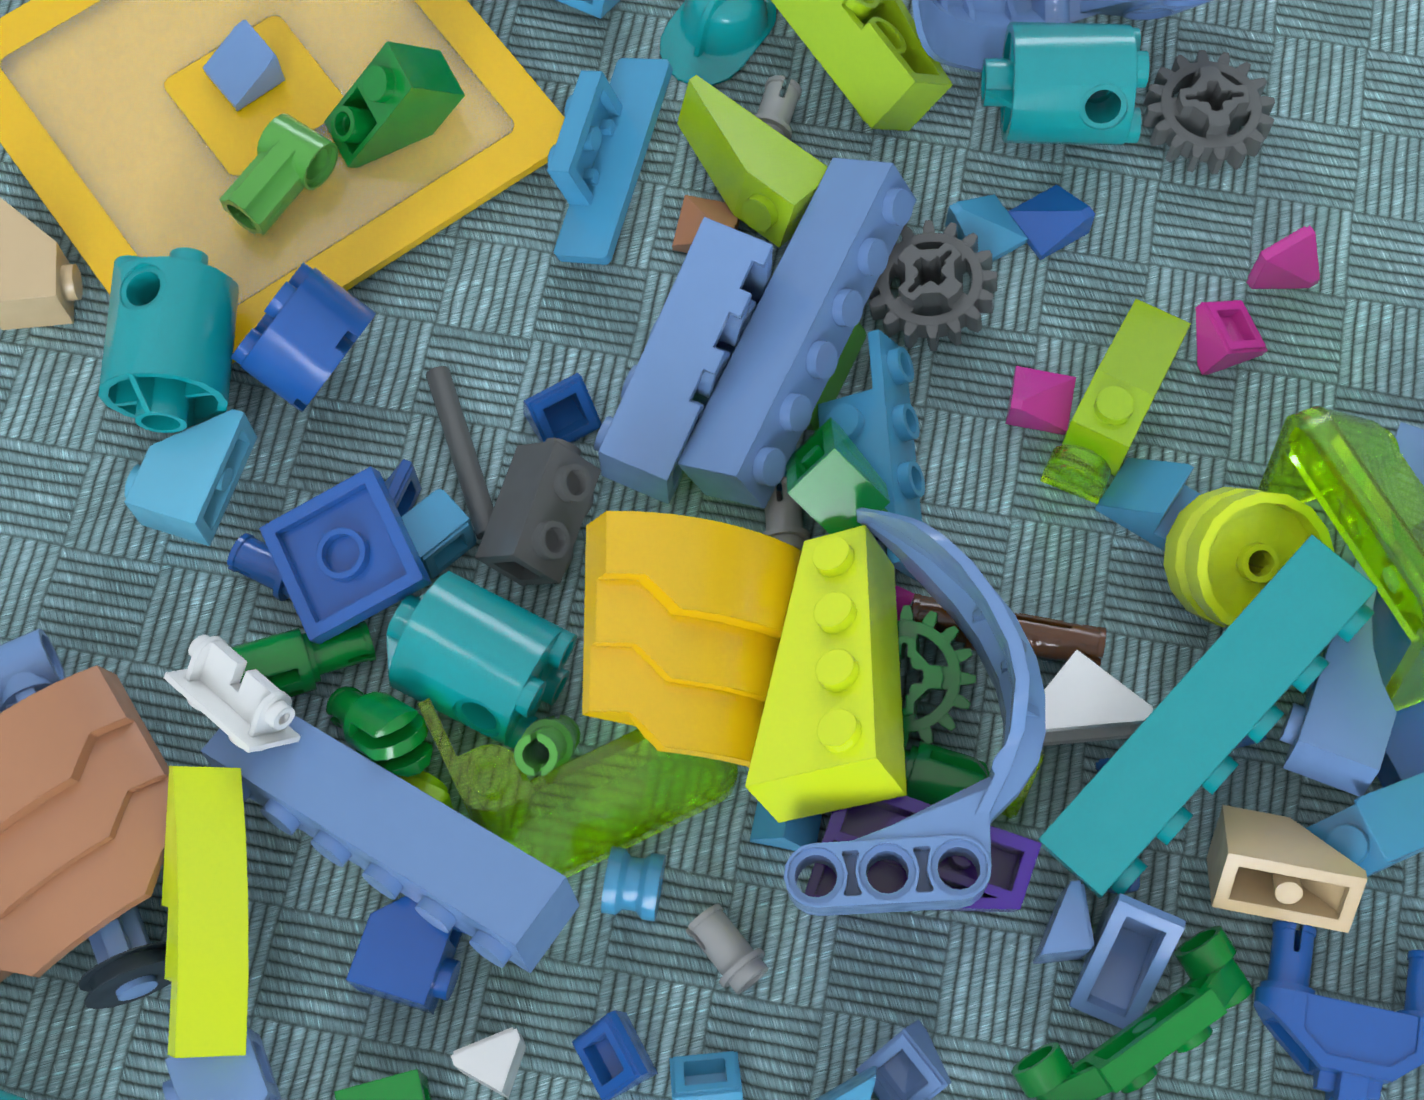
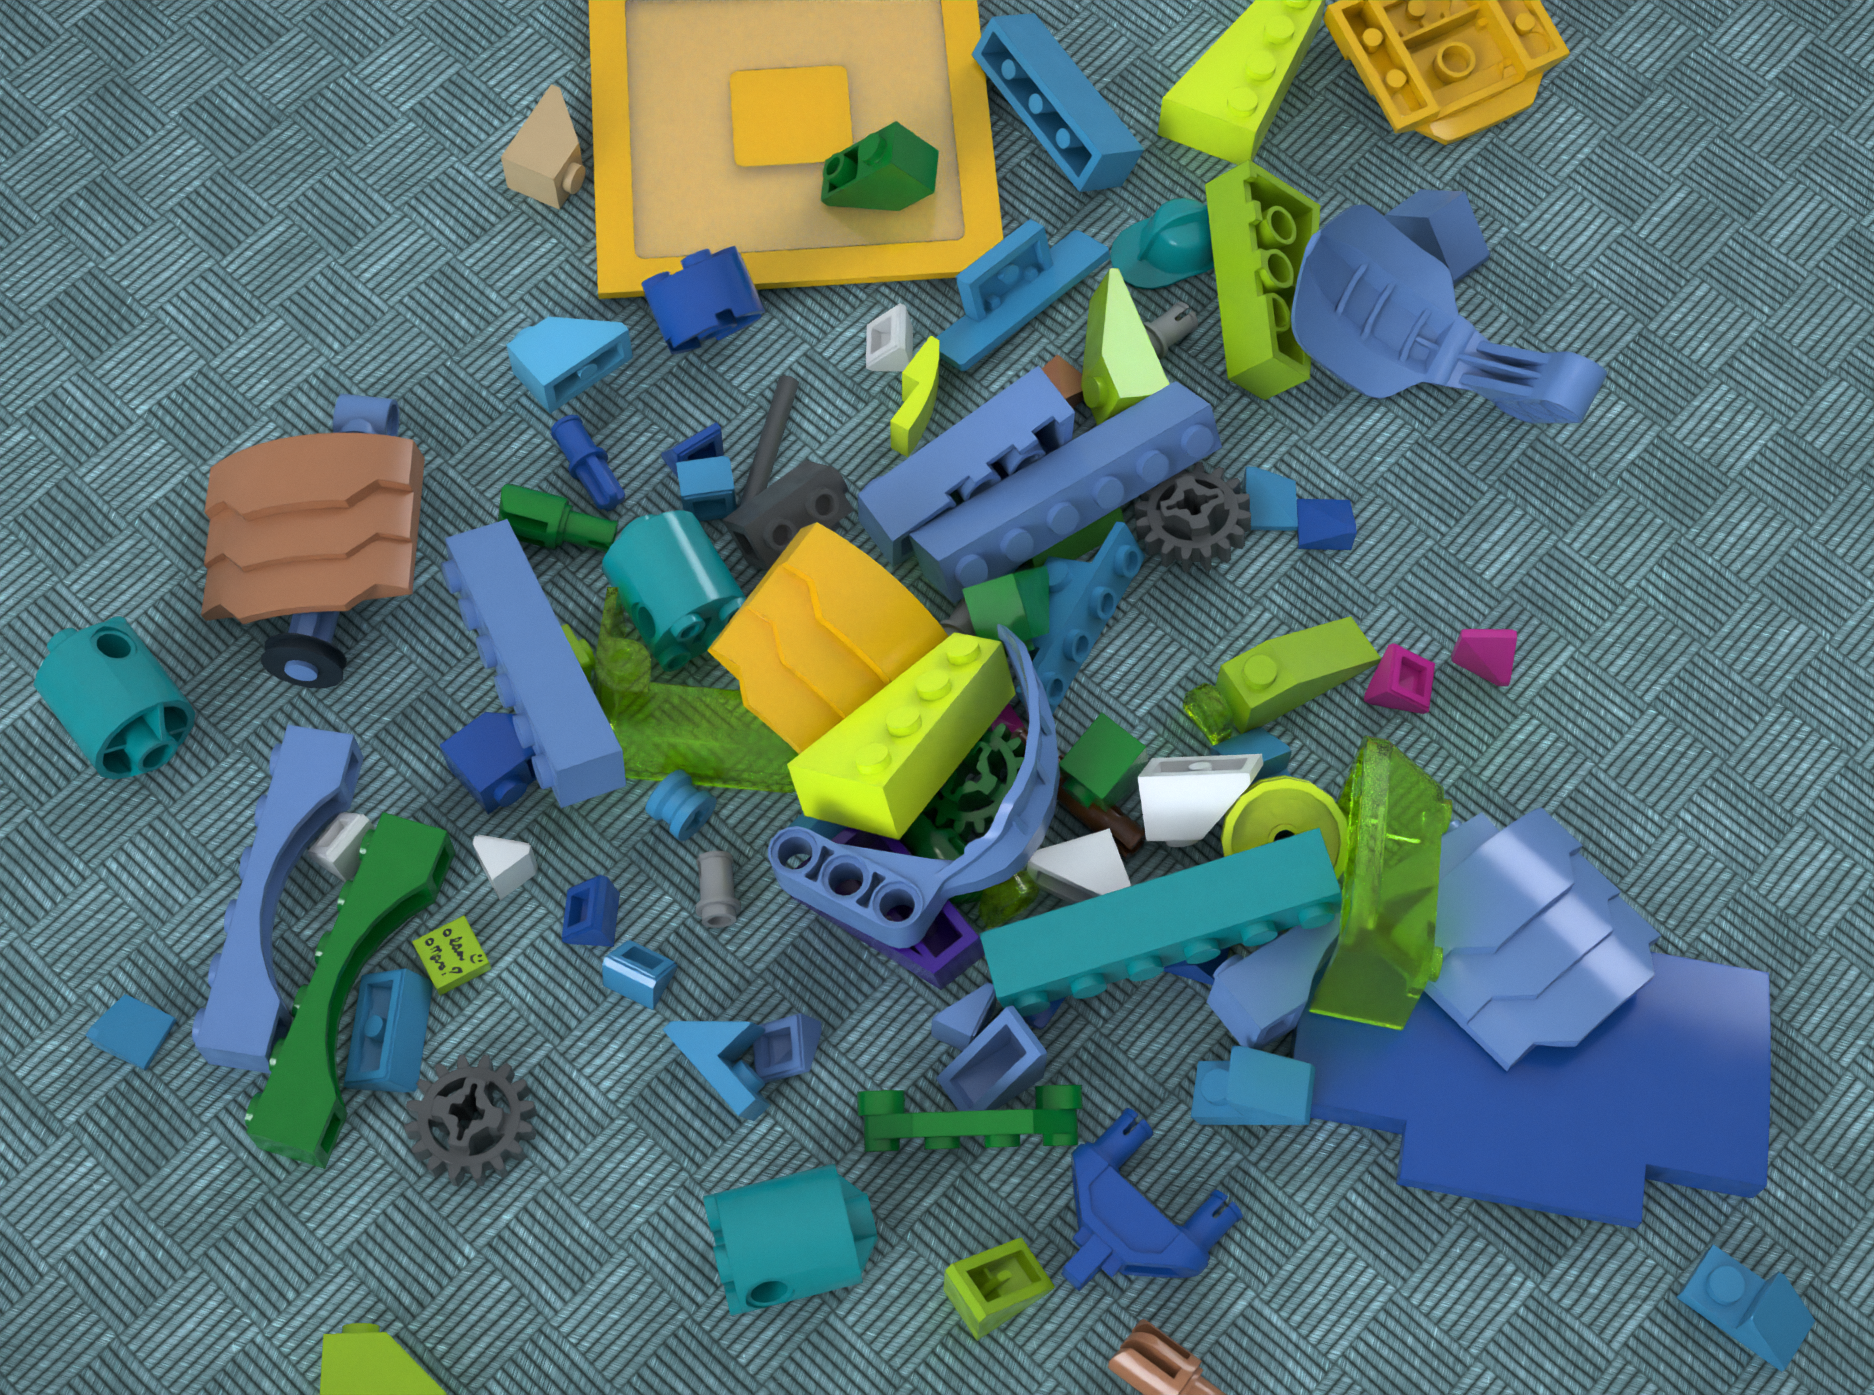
camera: 30 degrees right, 5 degrees down
(169, 340) = (607, 249): teal cylinder -> none
(206, 912) = (376, 639): neon yellow slope -> none
(244, 66) = (793, 90): medium blue slope -> none
(249, 712) = (488, 512): white hinge -> none
(286, 163) = (778, 172): bright green piece -> none
(345, 555) = (629, 463): blue plate -> none
(382, 729) = (575, 596): green arm -> none
(511, 274) = (890, 341): none -> white slope
(547, 745) = (680, 667): bright green pin -> none
(562, 411) = (857, 455): blue slope -> none
(580, 309) = (919, 395): none -> neon yellow slope
(1035, 585) = (1103, 764): none -> green slope
(1040, 400) = (1217, 643): dark pink slope -> none
(1067, 83) = (1399, 424): teal cylinder -> none
(1136, 563) = (1191, 794): none -> white slope
(1208, 111) = (1506, 508): dark grey gear -> none
(1281, 871) = (1150, 1070): tan slope -> none

